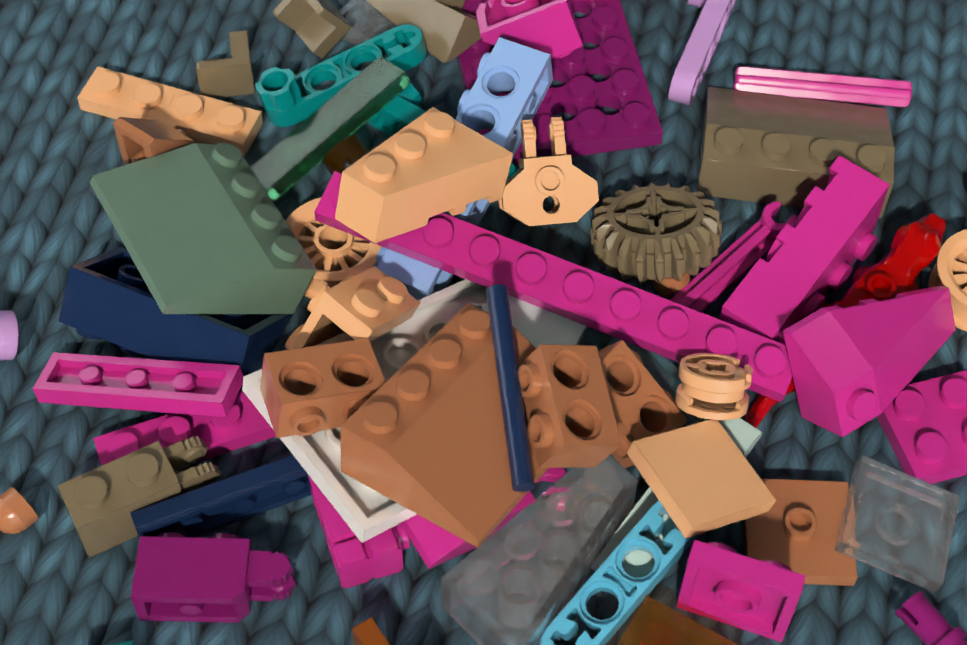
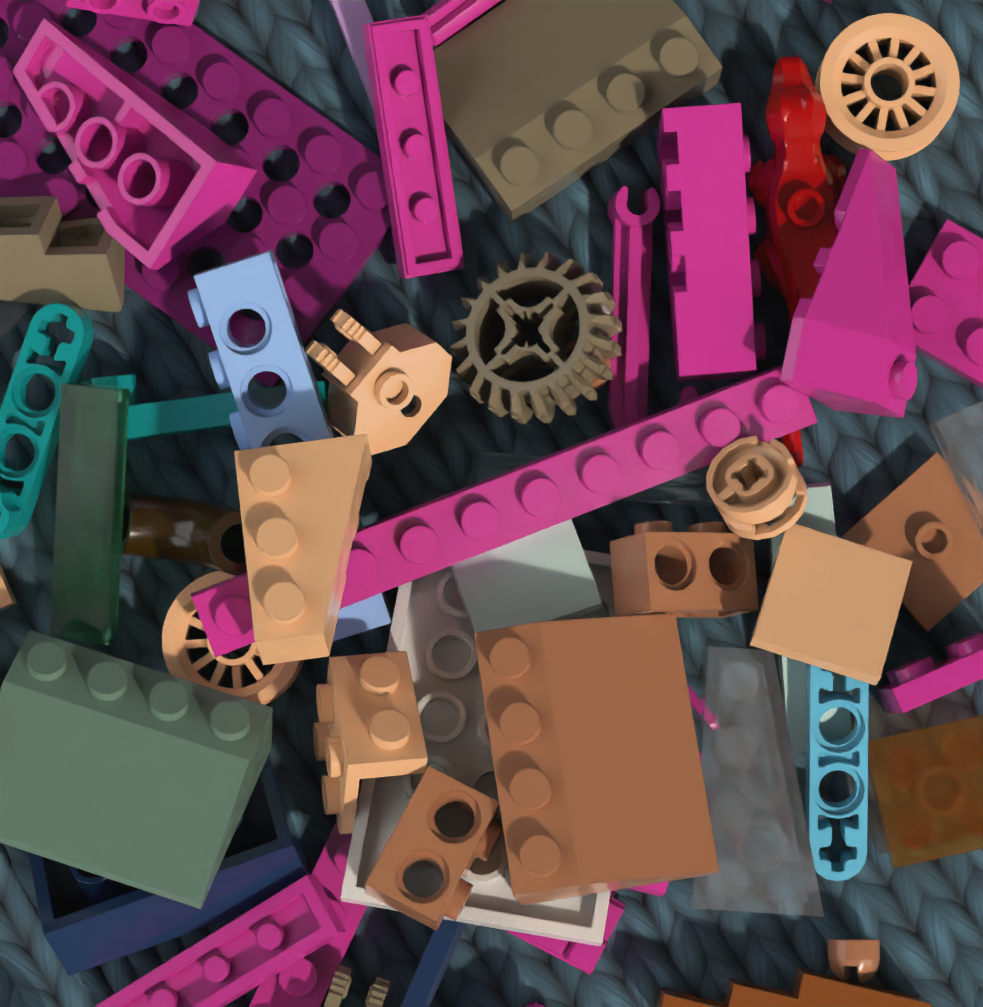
camera: 35 degrees left, 30 degrees up
(510, 389) = (605, 696): dark blue bar -> none
(568, 406) = (677, 650): nougat brick -> none
(676, 105) = (413, 146): none -> dark pink tile

